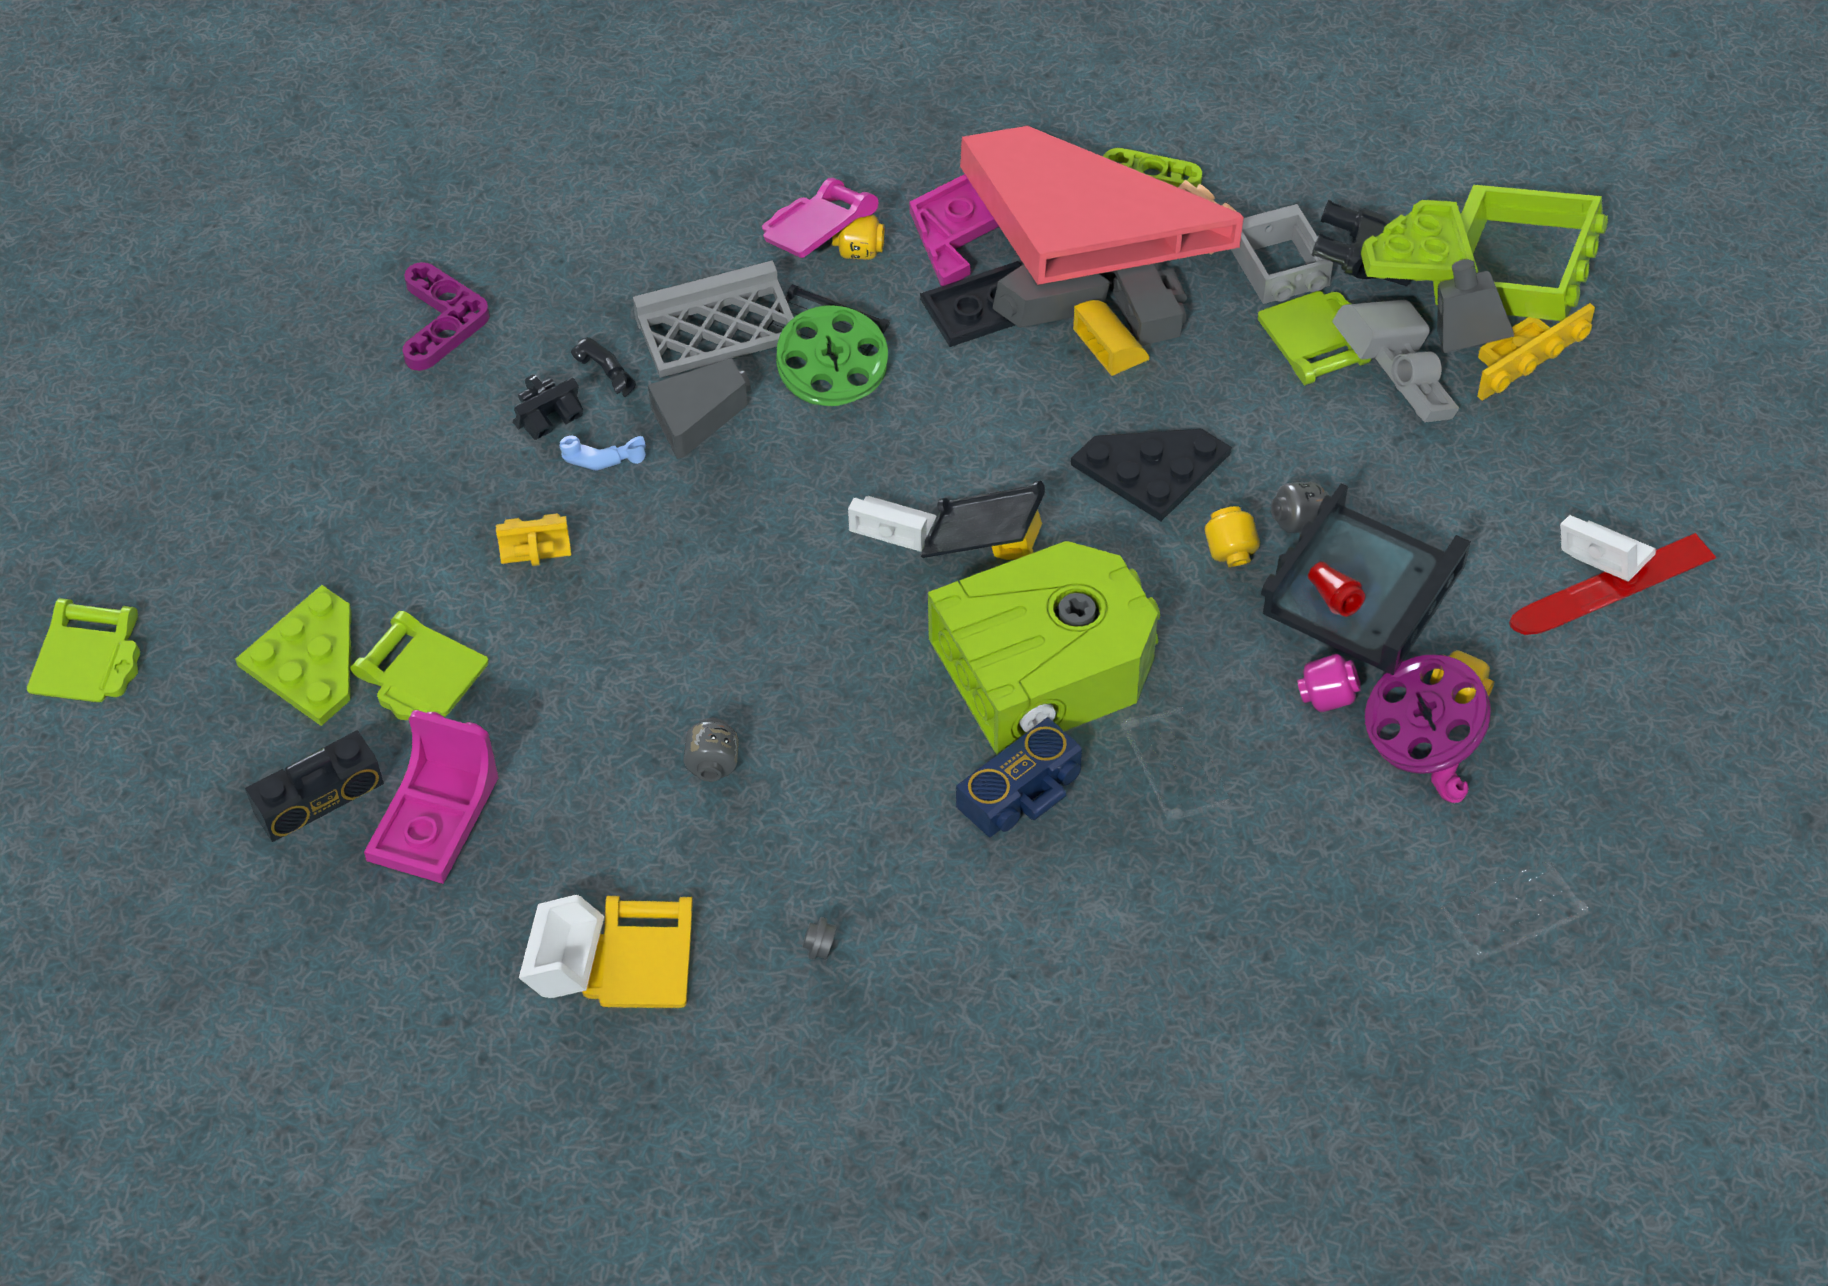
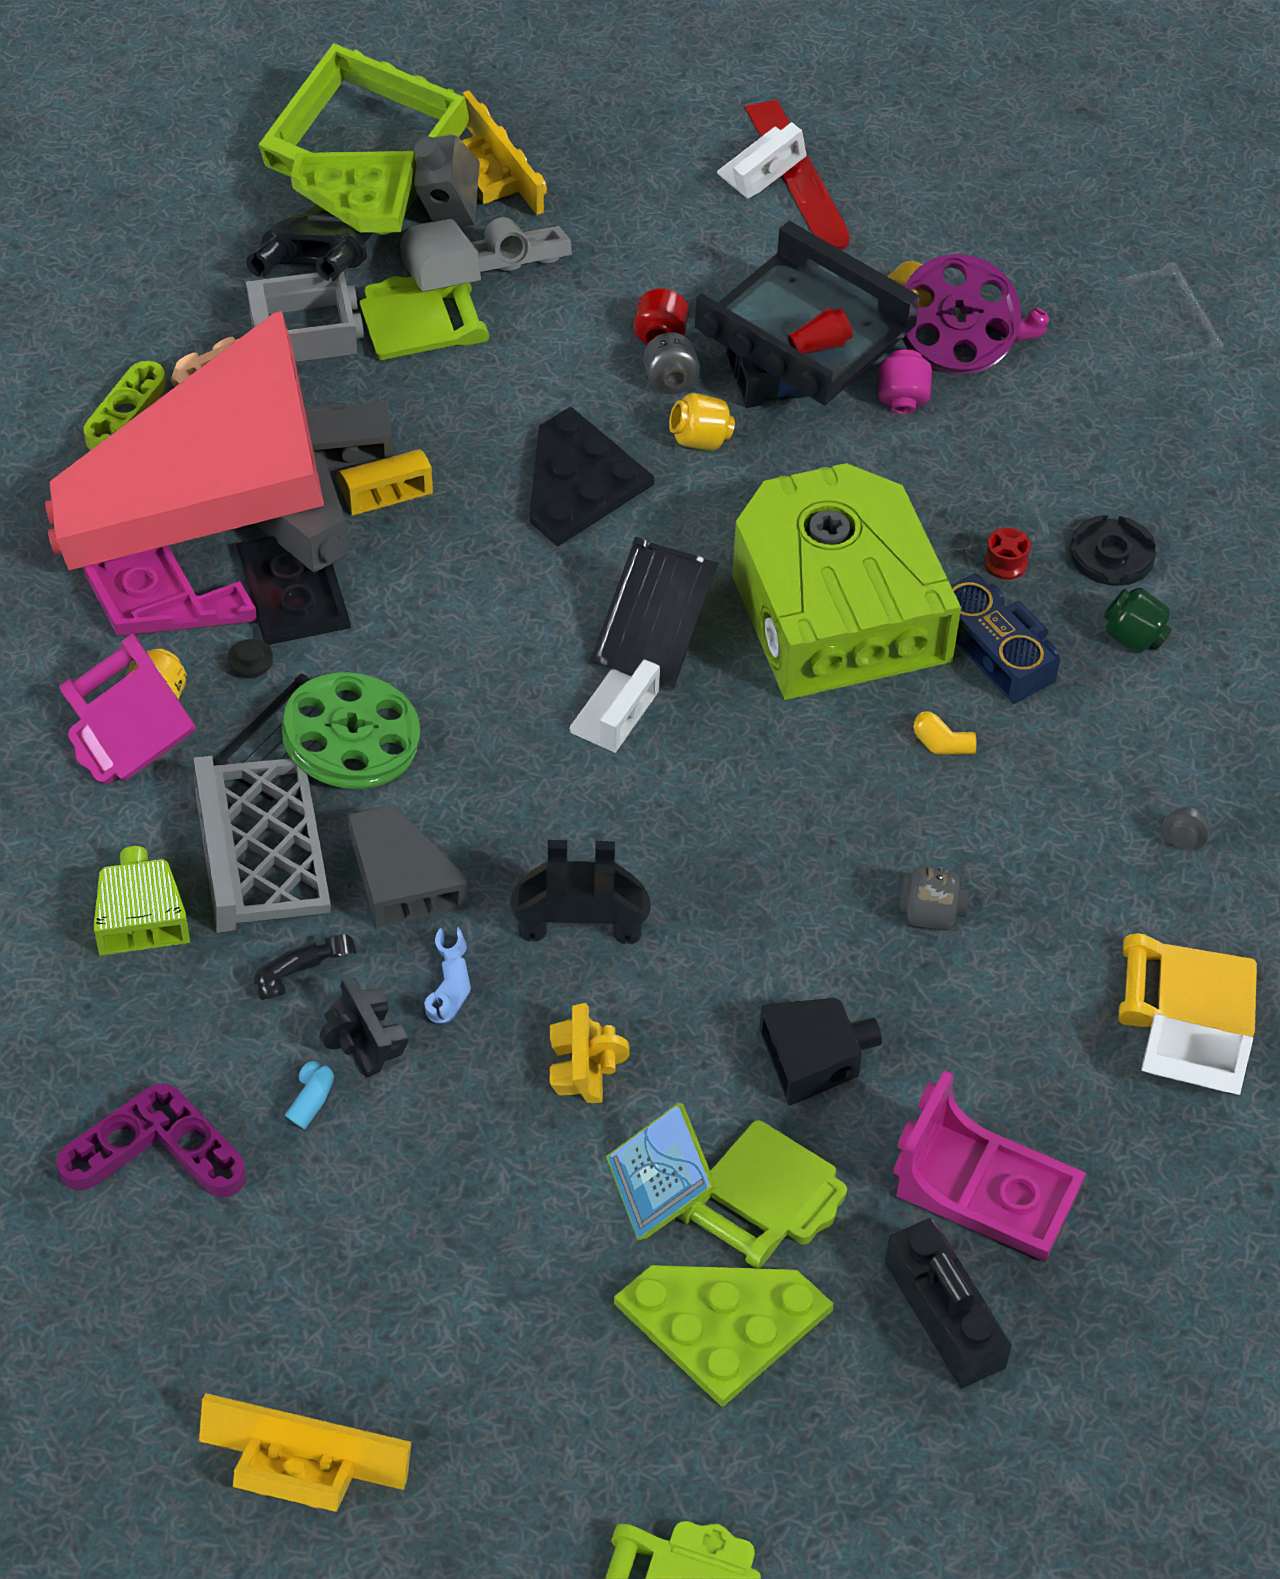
camera: 85 degrees left, 0 degrees up
(182, 425) = (300, 1455): none -> yellow bracket
(424, 596) = (660, 1172): none -> piece
(494, 391) = (317, 1083): none -> medium azure arm
(552, 682) = (815, 1045): none -> black torso
(644, 262) = (138, 905): none -> lime torso
(658, 504) = (580, 894): none -> black connector
(896, 752) = (940, 738): none -> yellow arm
(899, 289) = (250, 658): none -> pearl dark grey plate
(1063, 887) = (1138, 620): none -> dark green head
(1129, 771) = (1007, 553): none -> red wheel
(1158, 885) = (1111, 562): none -> black tile
(1366, 492) = (660, 313): none -> red head

